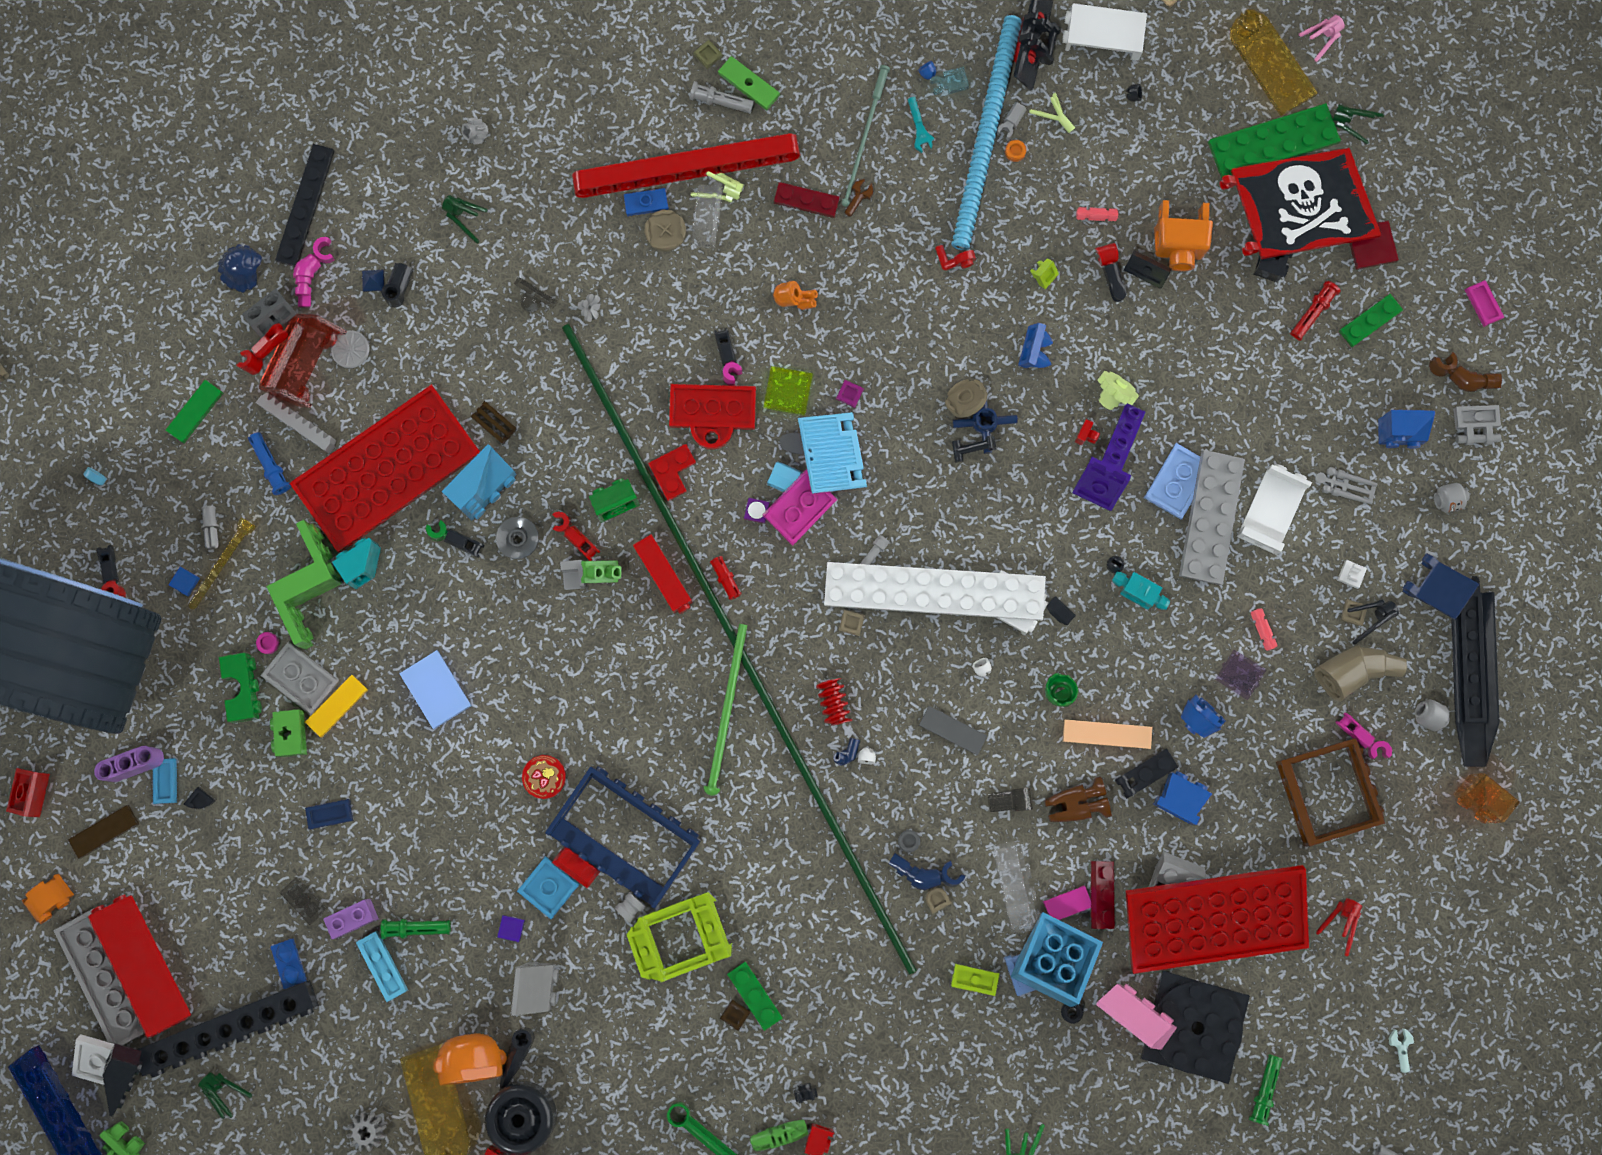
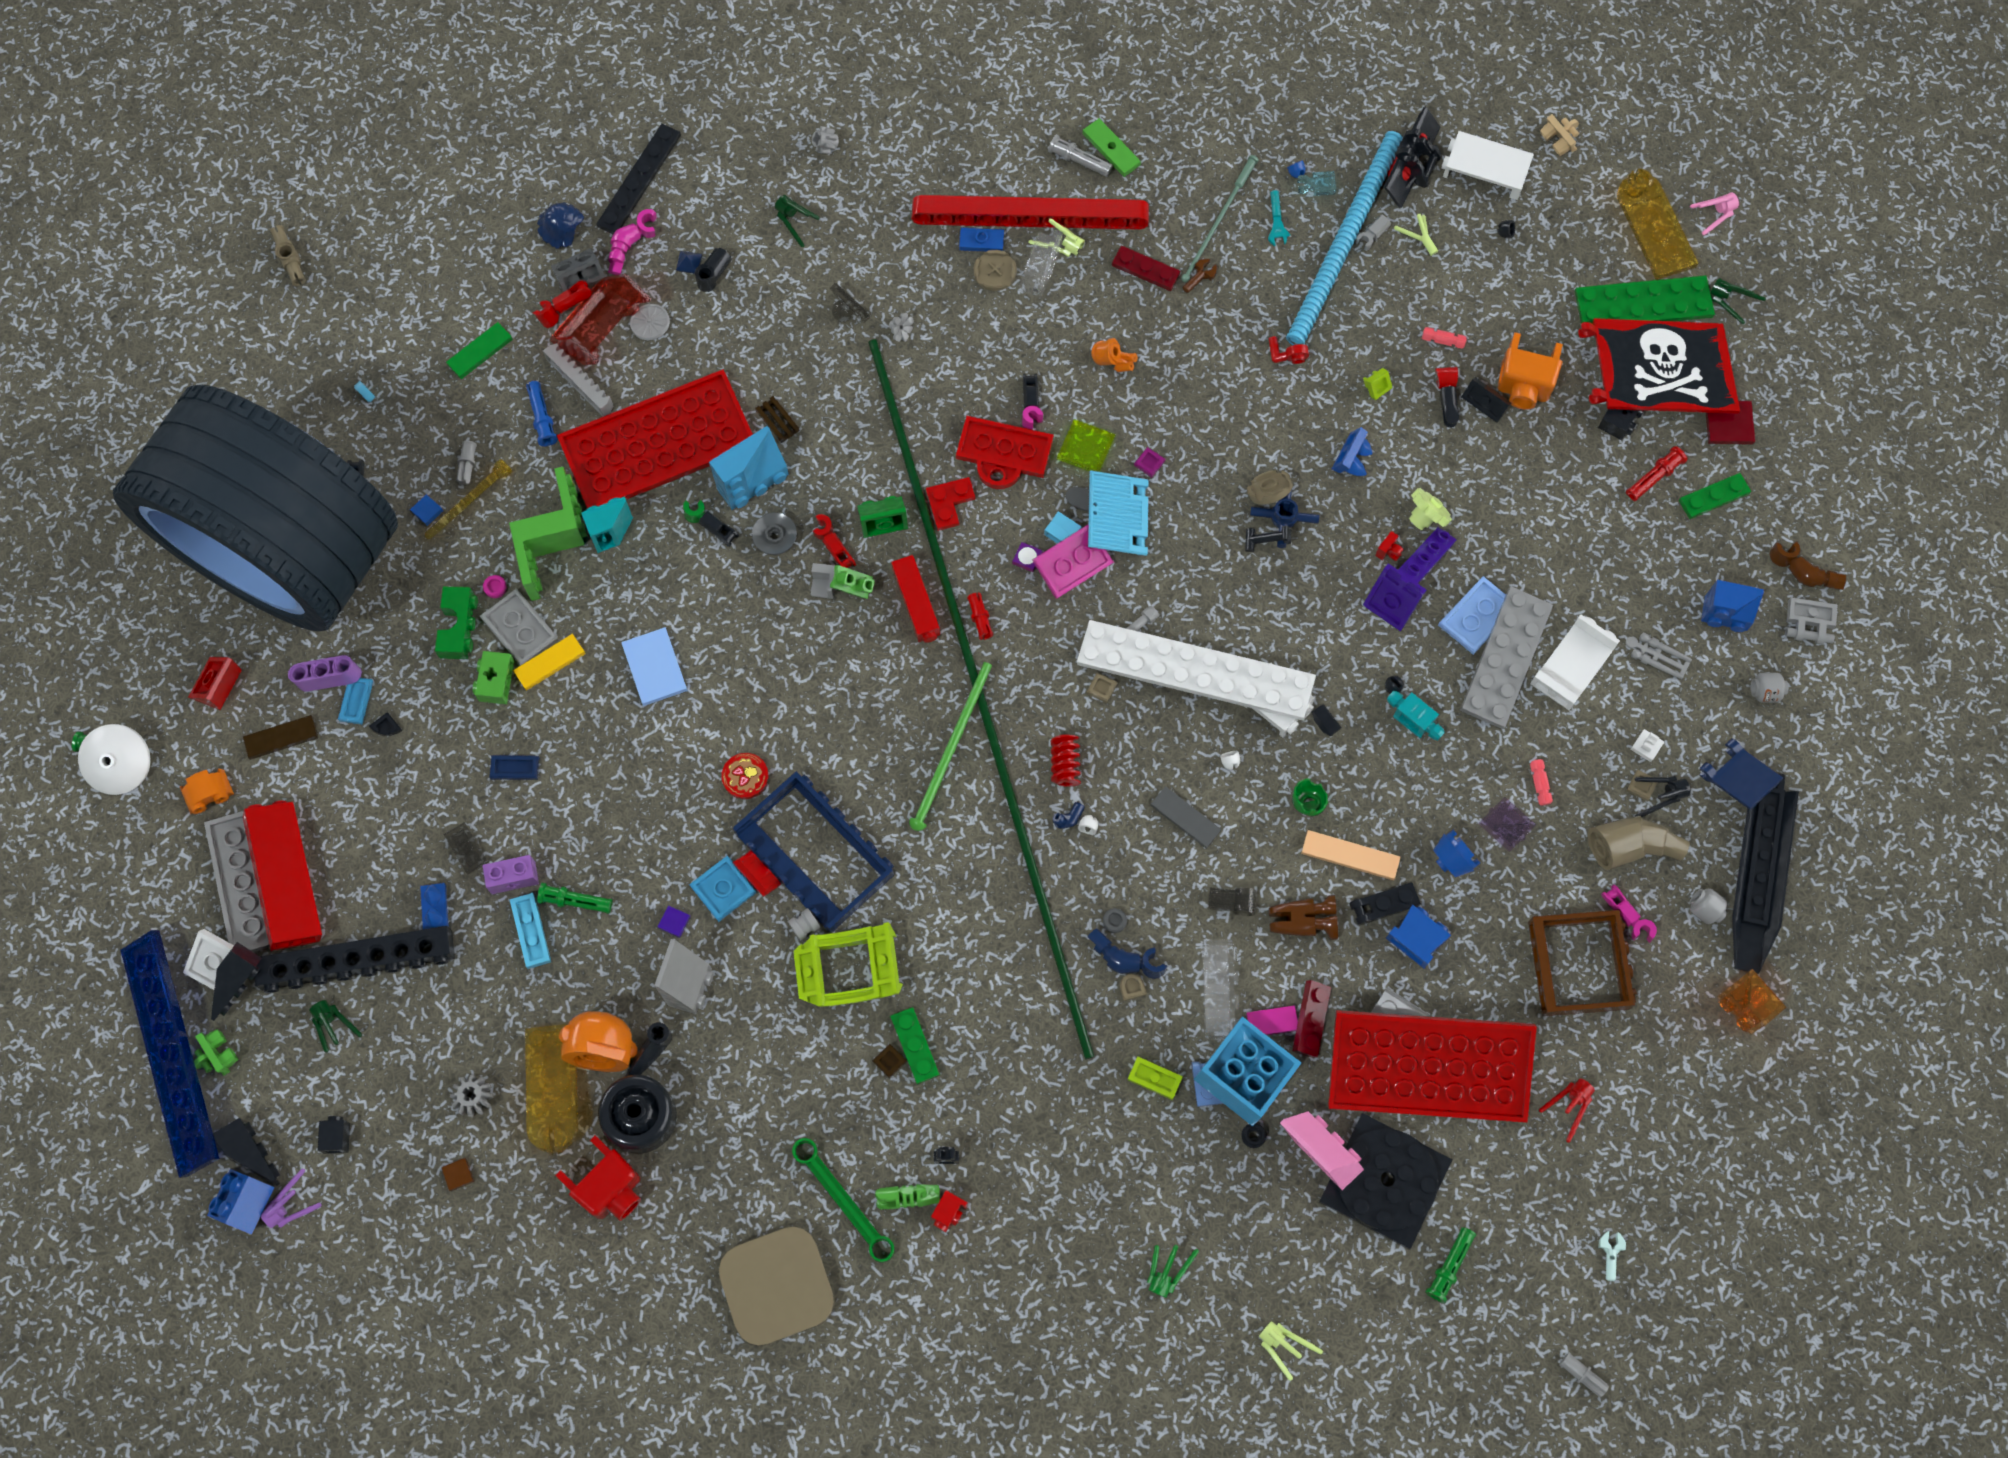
camera: 15 degrees right, 10 degrees down
(707, 54) = (1076, 114): olive tile -> none
(1015, 150) = (1371, 261): orange tile -> none
(1484, 303) = (1840, 502): dark pink tile -> none

